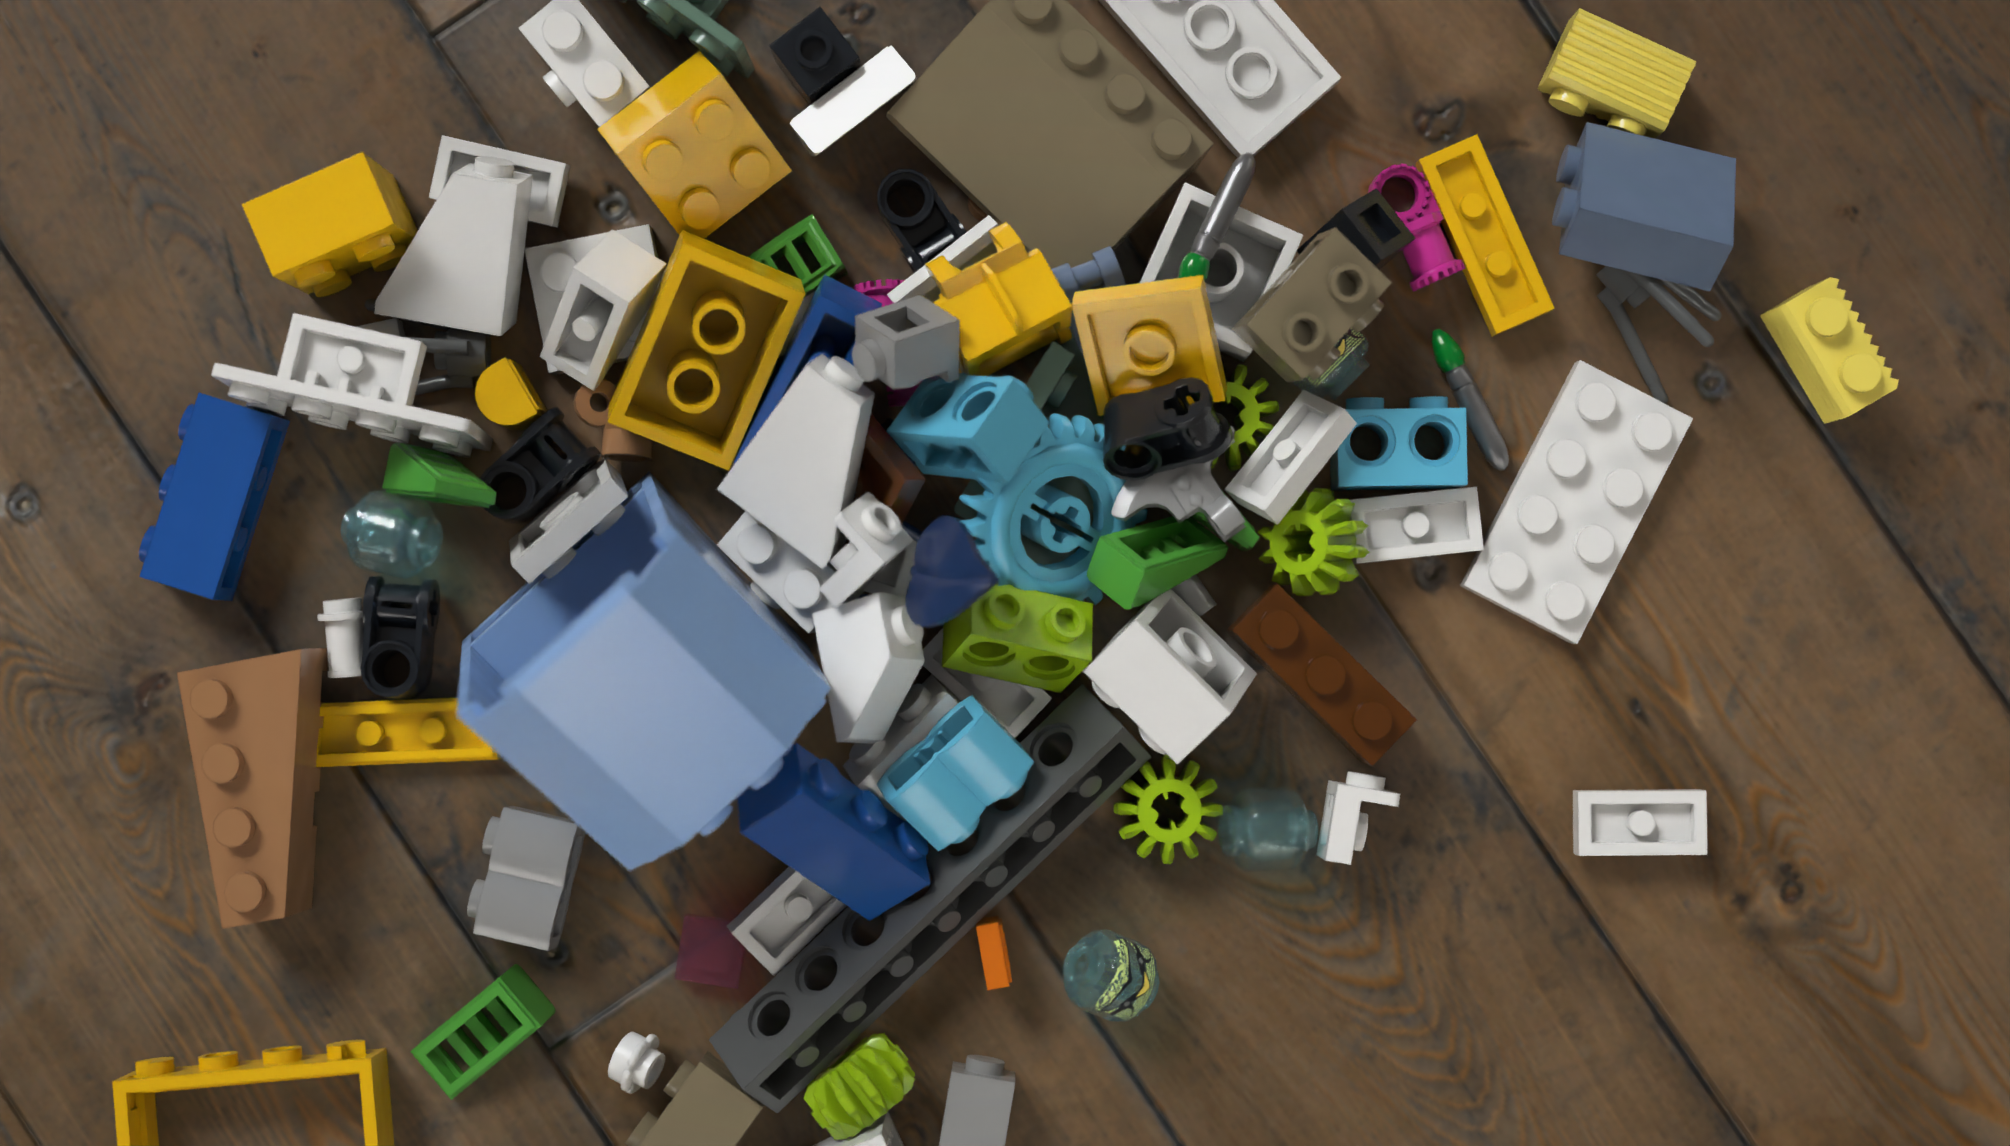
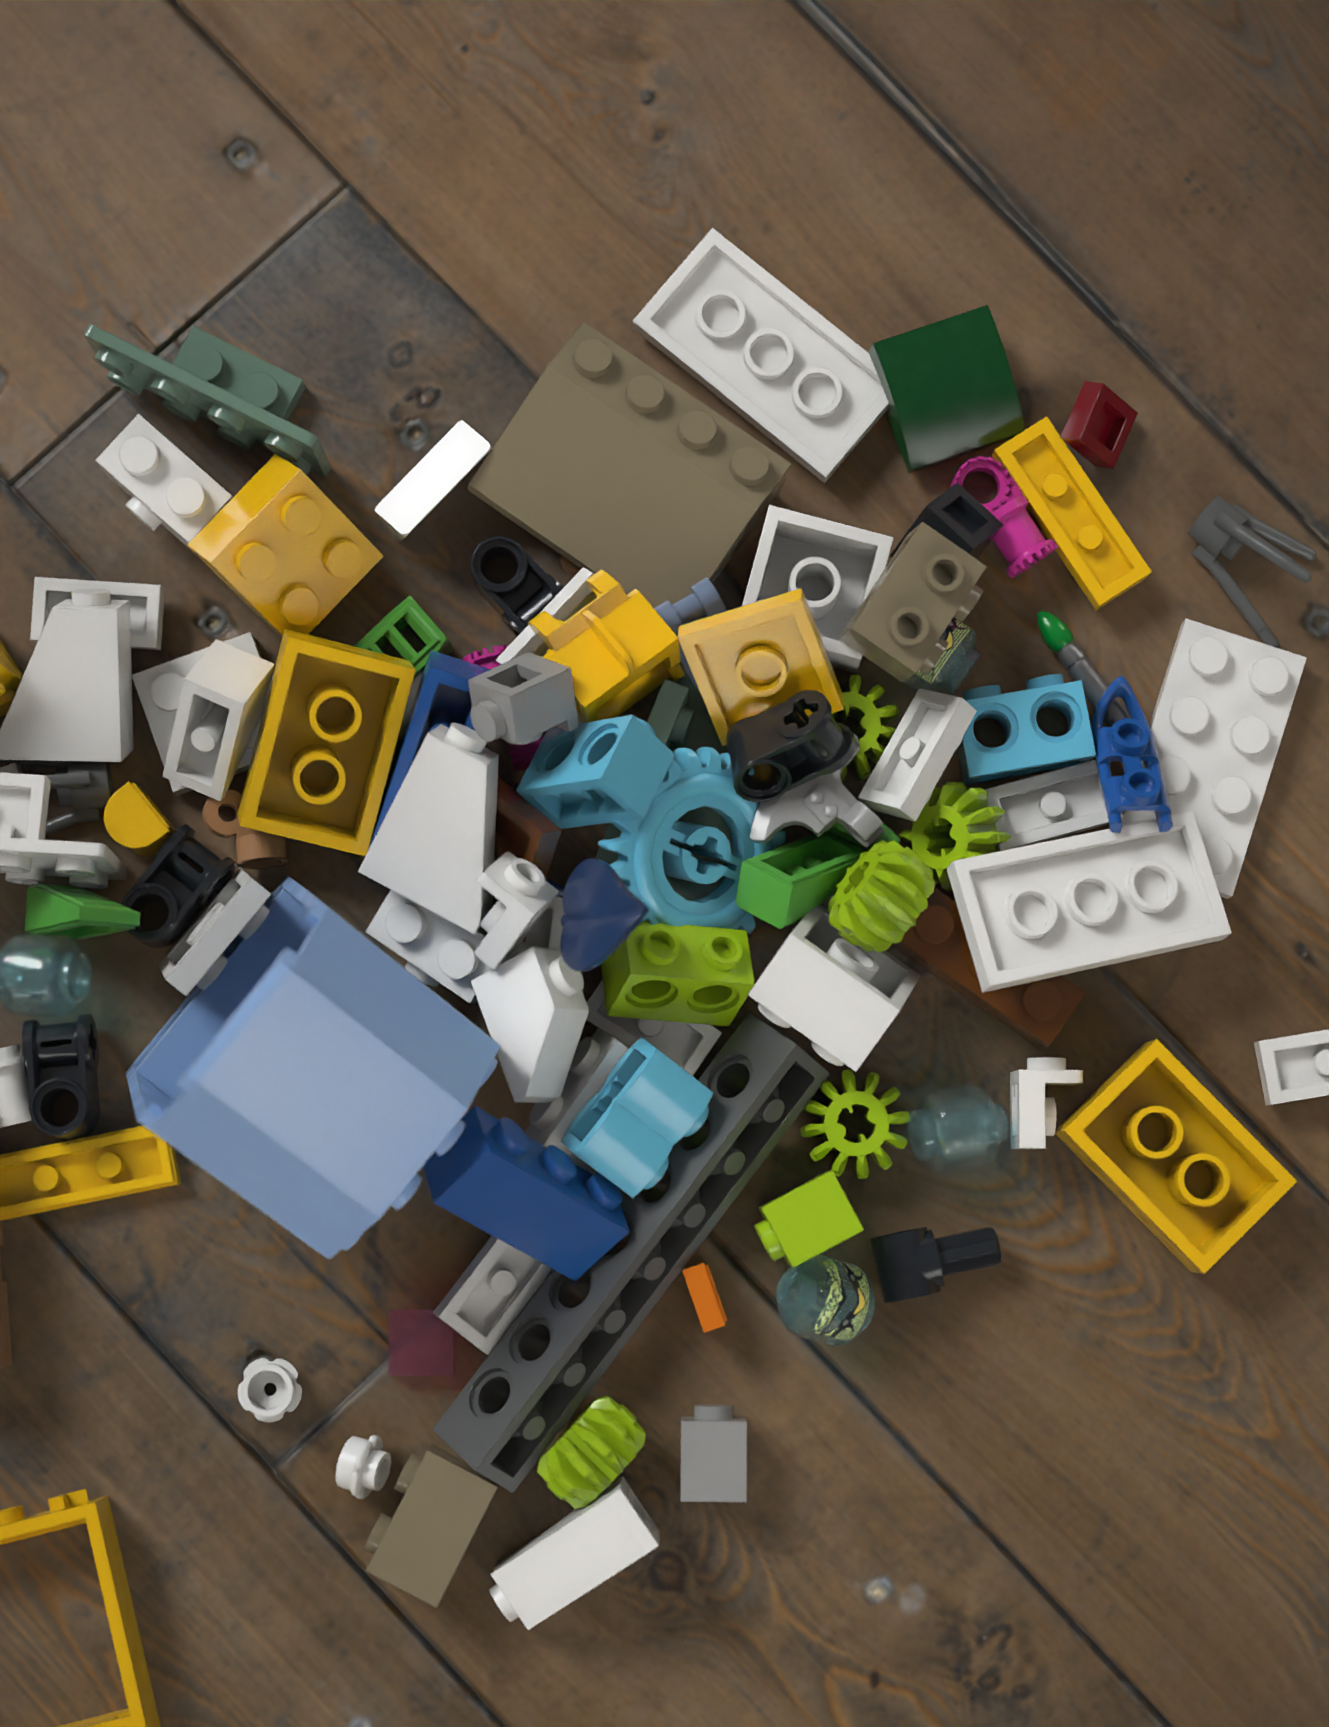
camera: 10 degrees left, 5 degrees down
(515, 1005) = (229, 1430): bright green slope -> none
(527, 877) = (225, 1297): light grey brick -> none
(555, 990) = (270, 1407): none -> white plate
(814, 56) = (388, 442): black brick -> none
(1105, 898) = (807, 1220): none -> lime brick
(1204, 952) = (915, 1262): none -> black axle
(1219, 217) = (808, 532): flat silver piece -> none
(1231, 594) = (881, 896): none -> lime gear
(1383, 89) = (948, 388): none -> dark green slope
(1434, 630) = (1087, 901): none -> white plate
(1476, 892) = (1175, 1157): none -> yellow brick
(1503, 478) = (1129, 742): none -> blue piece
(1527, 150) = (1099, 424): none -> dark red plate
(1615, 76) = (1171, 341): light yellow brick -> none
(1646, 206) = (1222, 458): sand blue brick -> none

